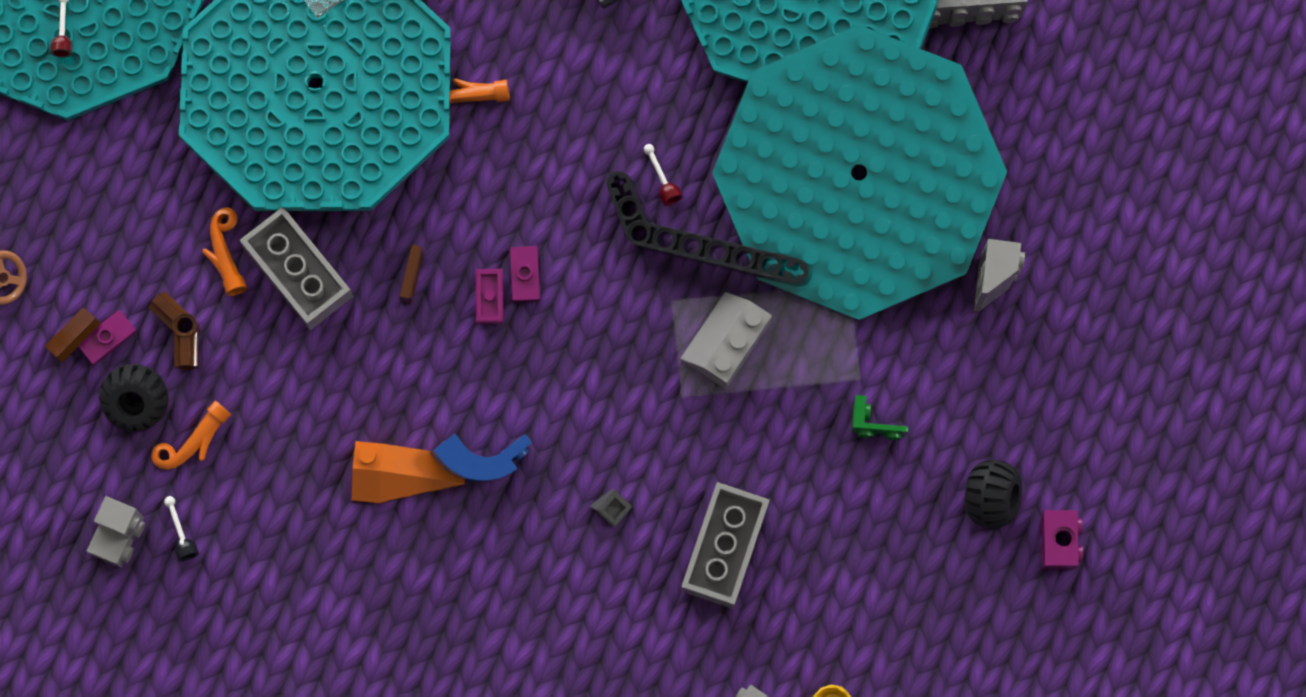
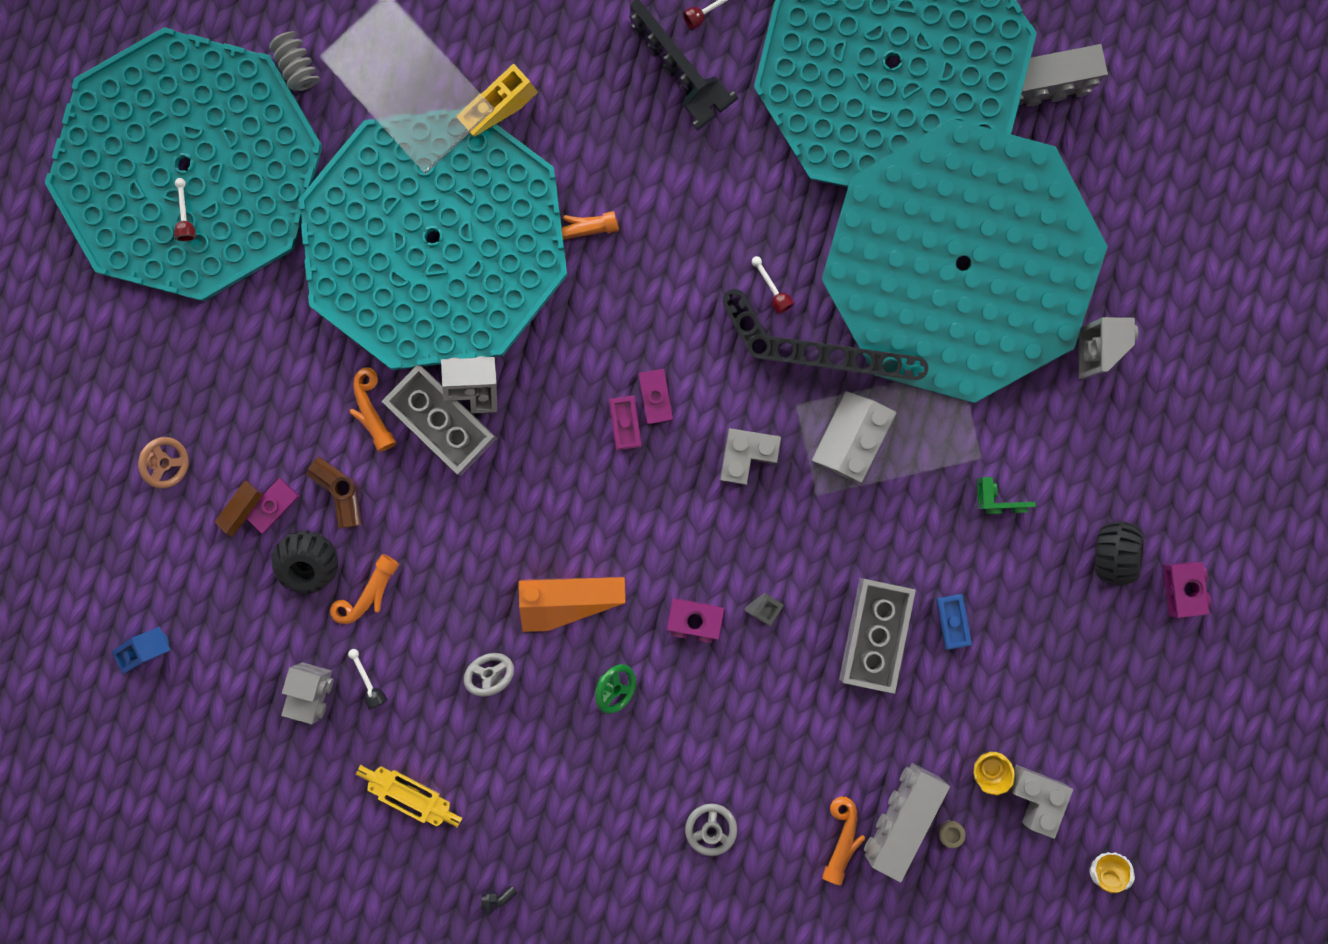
camera: 10 degrees left, 10 degrees up
(230, 673) = (384, 783): none -> yellow piece
(312, 541) = (491, 676): none -> light grey piece
(335, 229) = (471, 380): none -> brick
(411, 274) = (549, 411): reddish brown tile -> none
(436, 565) = (609, 687): none -> green piece
(465, 465) = (642, 589): blue arch -> none
(523, 496) = (710, 614): none -> magenta brick
(611, 336) = (741, 449): none -> light grey brick
(809, 544) = (953, 621): none -> blue plate

